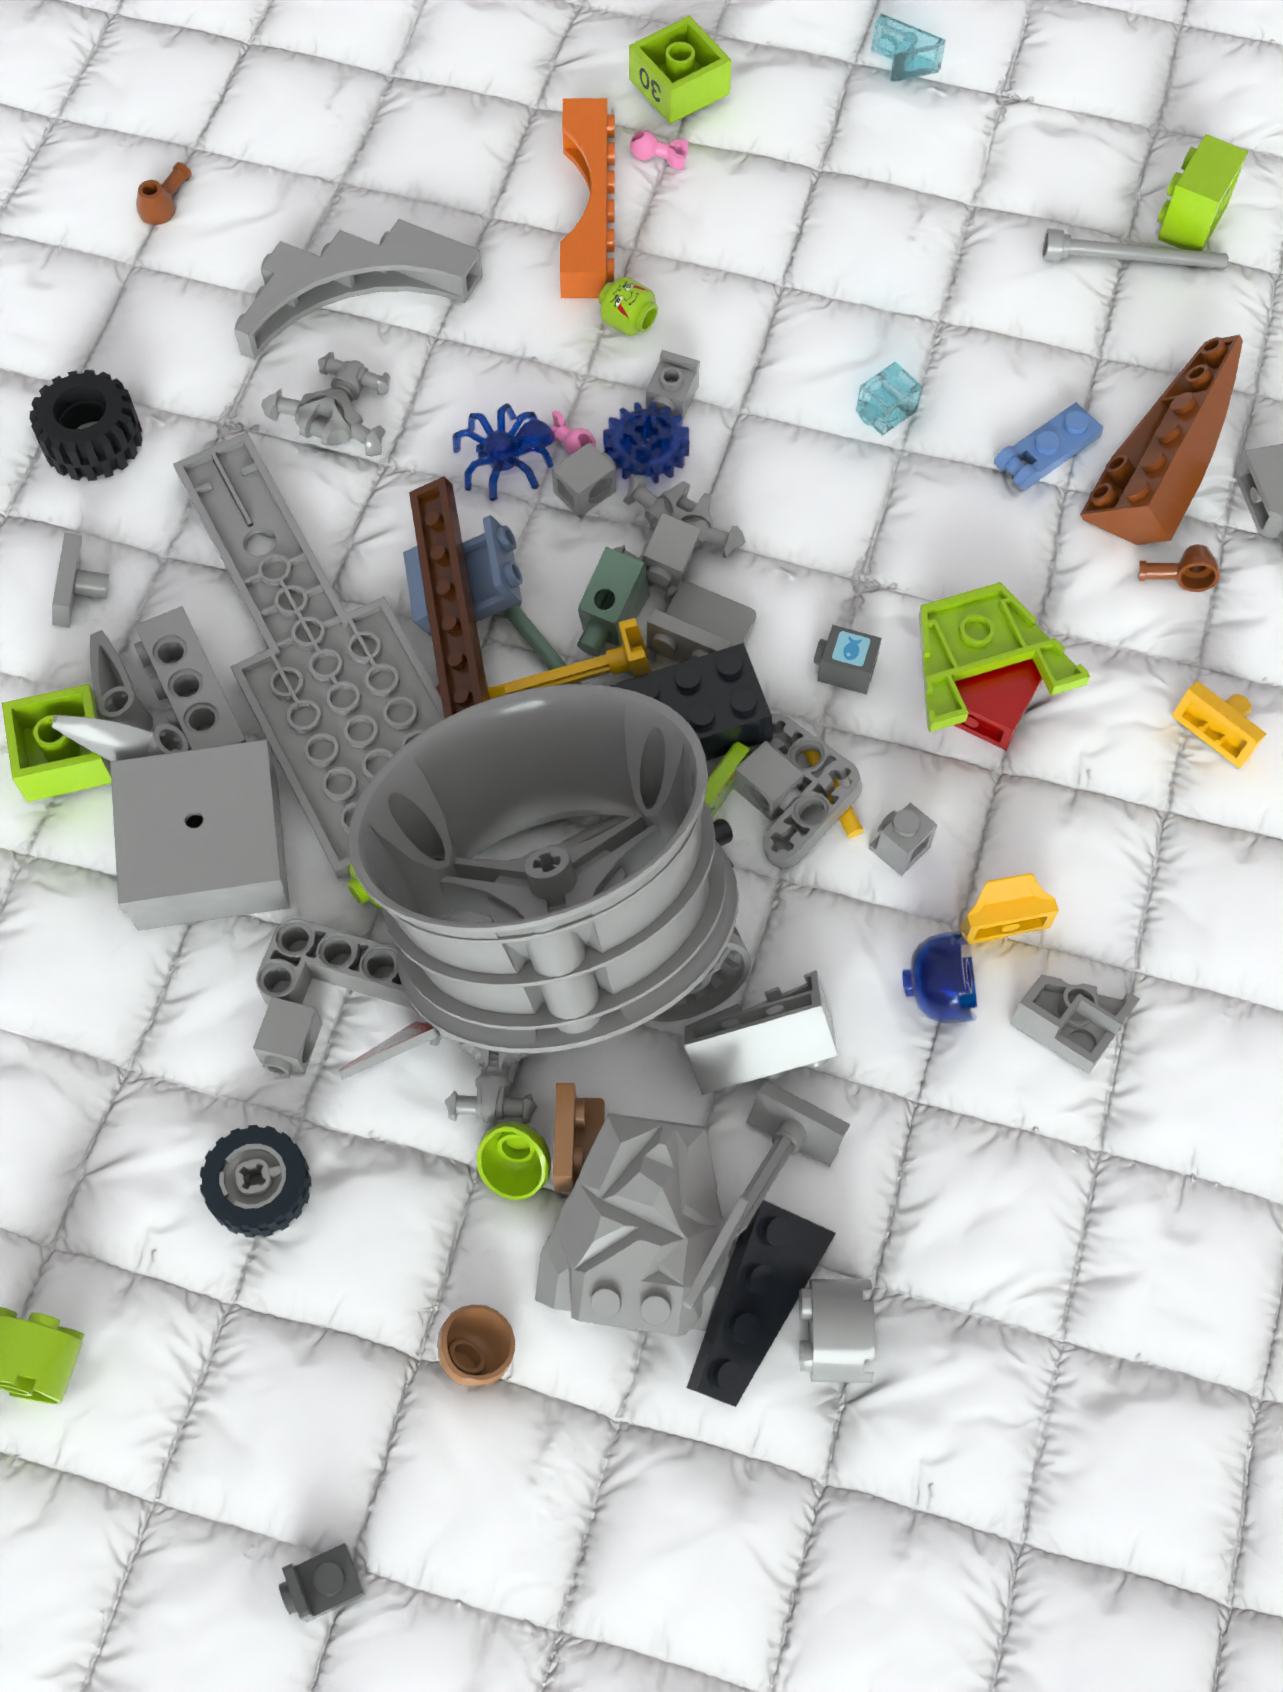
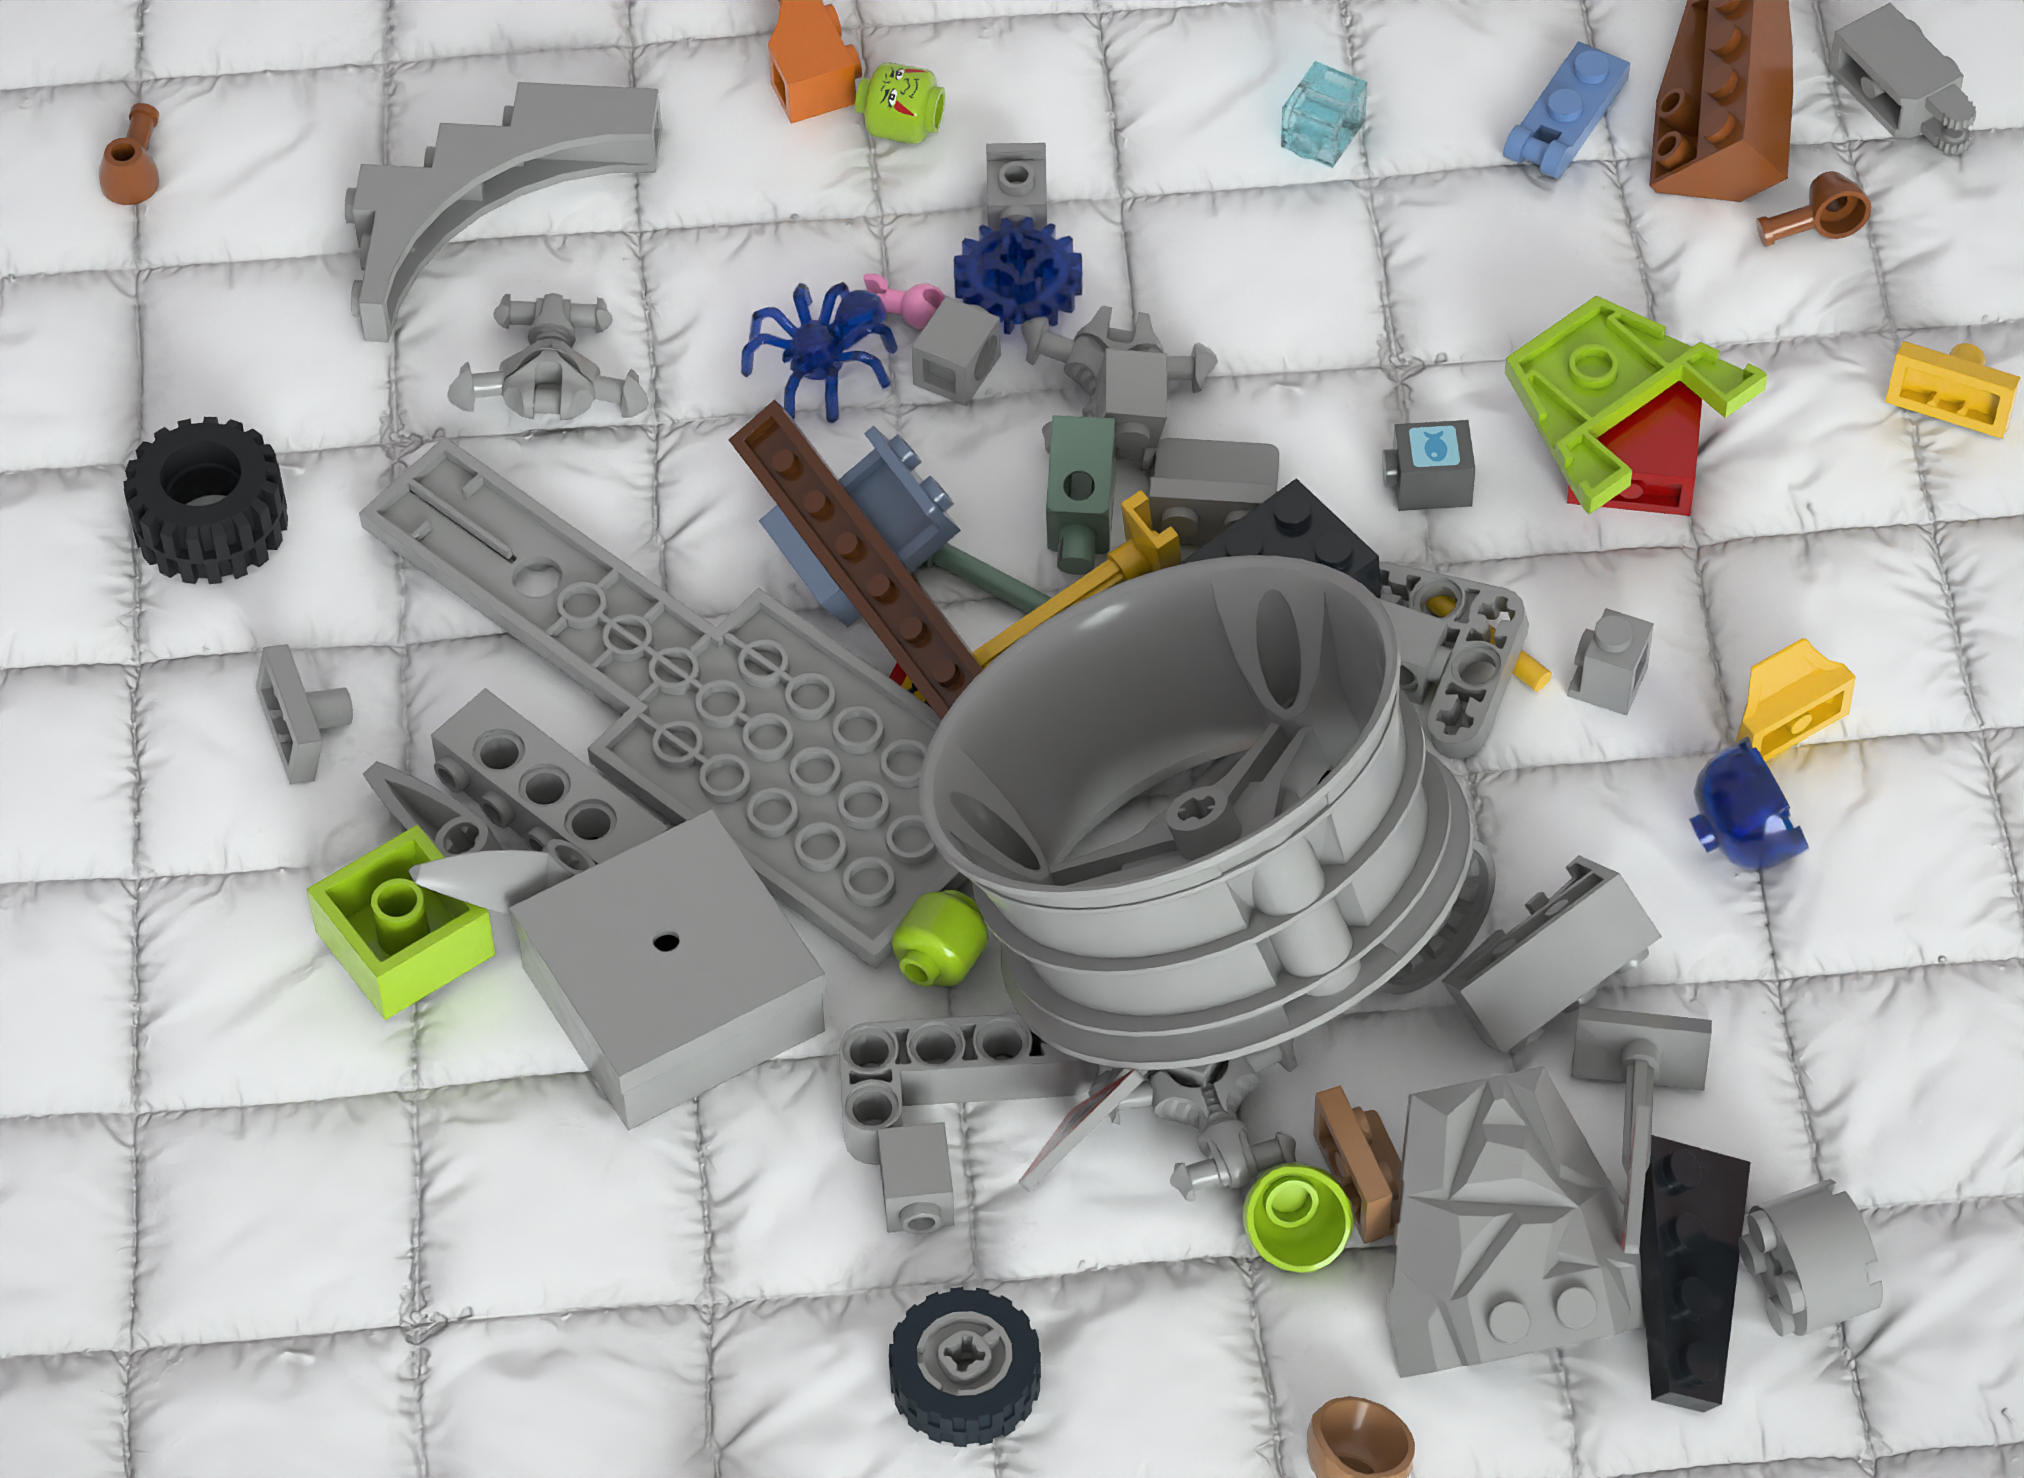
camera: 20 degrees left, 10 degrees down
(1072, 1019) = (1928, 810): light grey slope -> none

